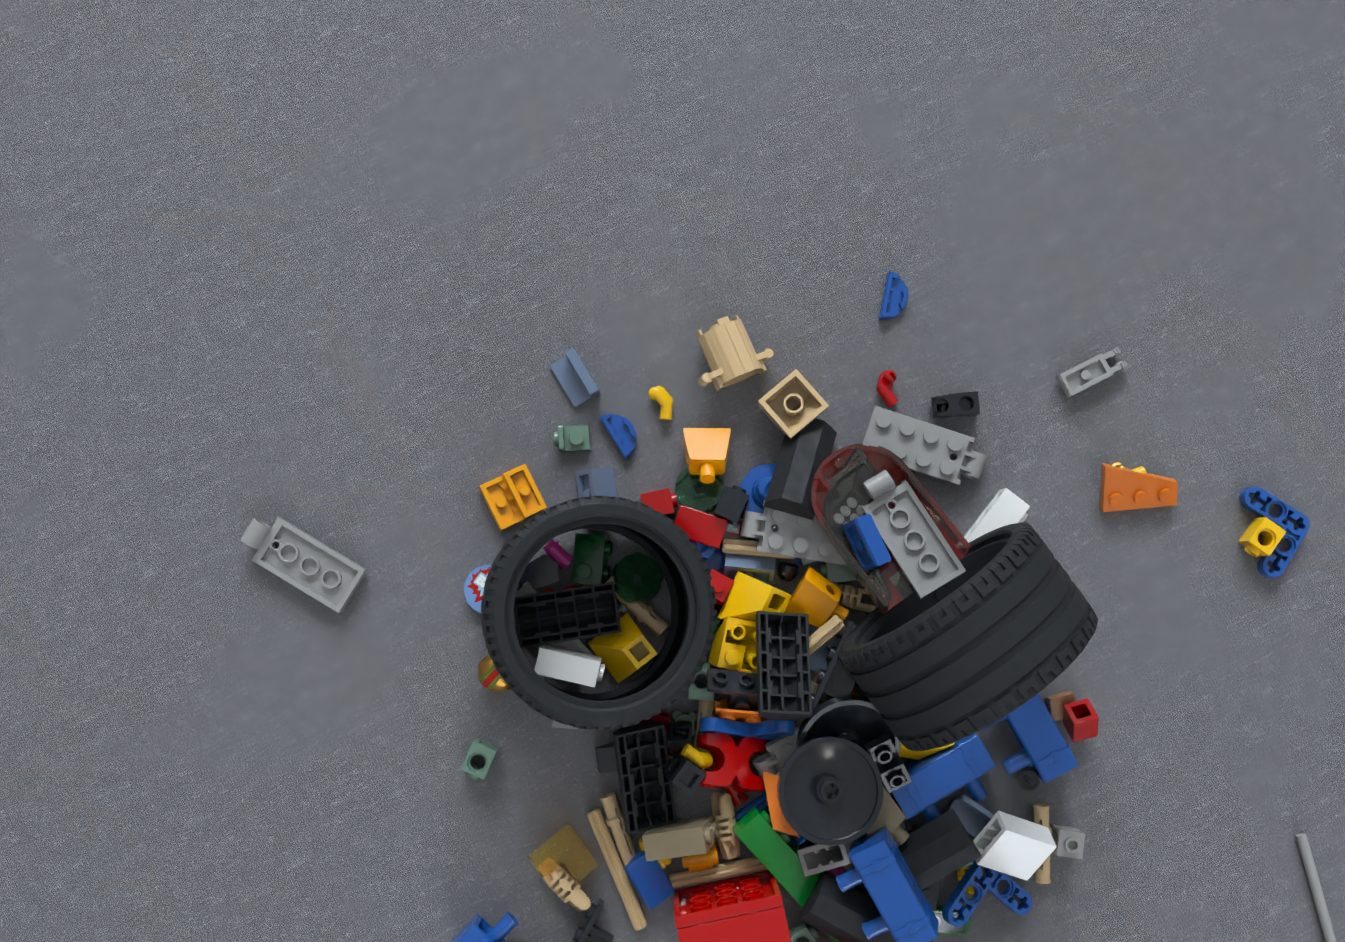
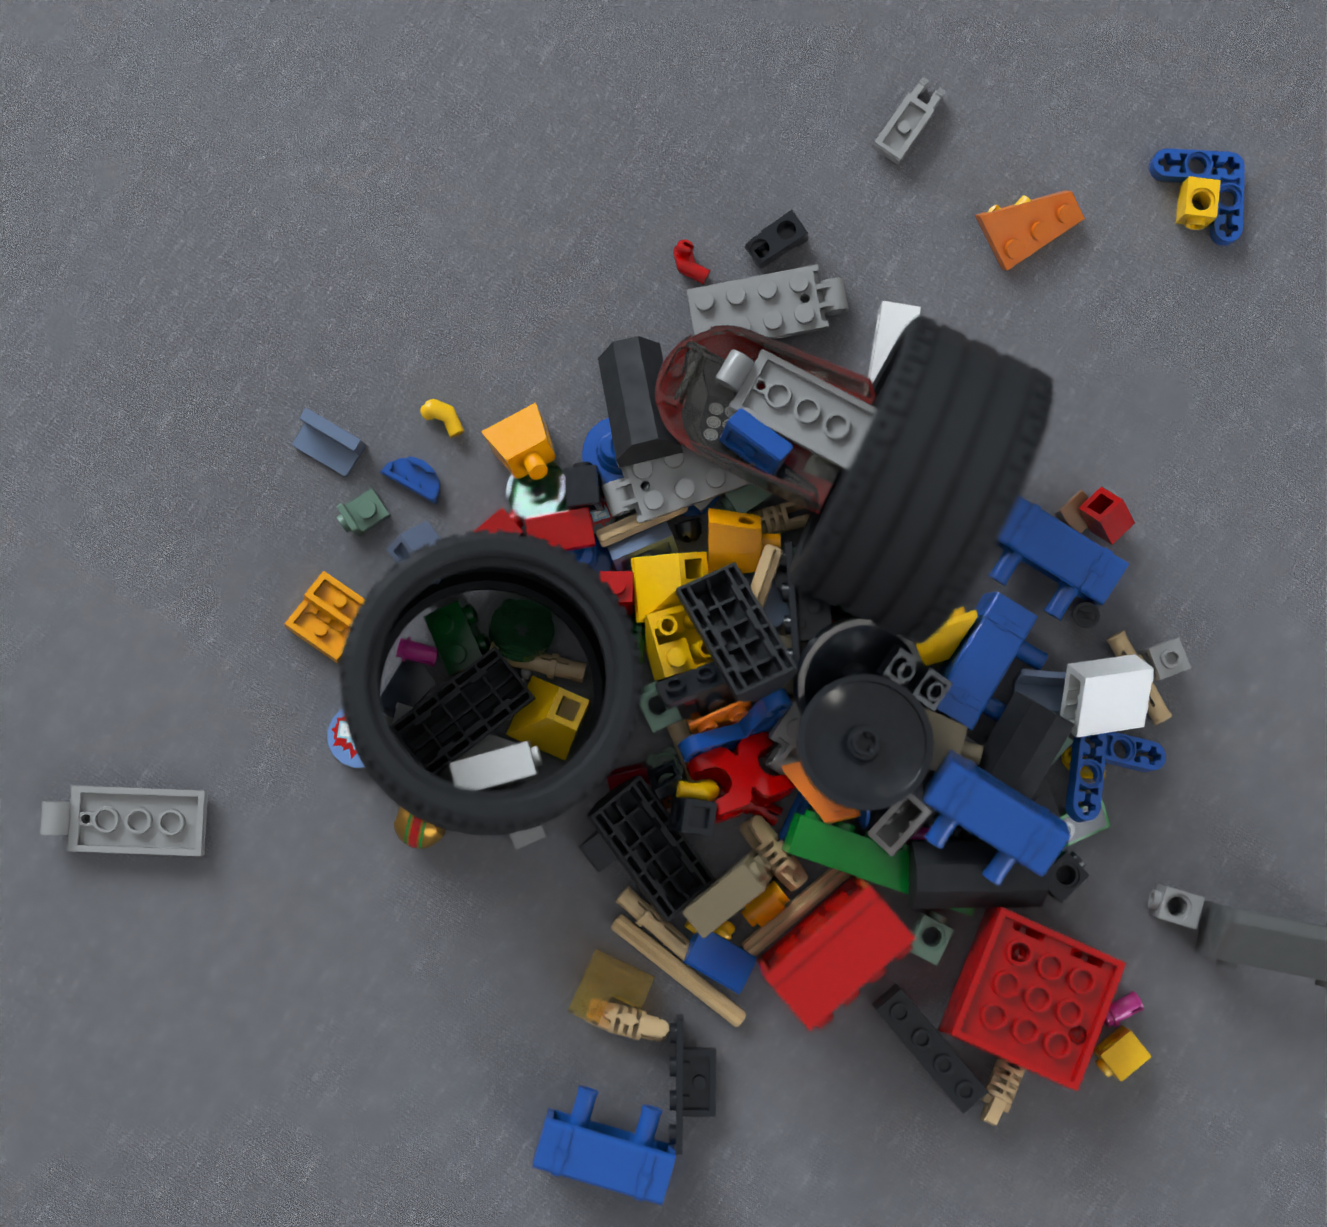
camera: 25 degrees left, 0 degrees up
(484, 749) = (457, 918): sand green brick -> none
(730, 353) = (489, 318): tan container -> none
(792, 404) = (589, 336): tan slope -> none
(894, 297) = (642, 156): blue tile -> none

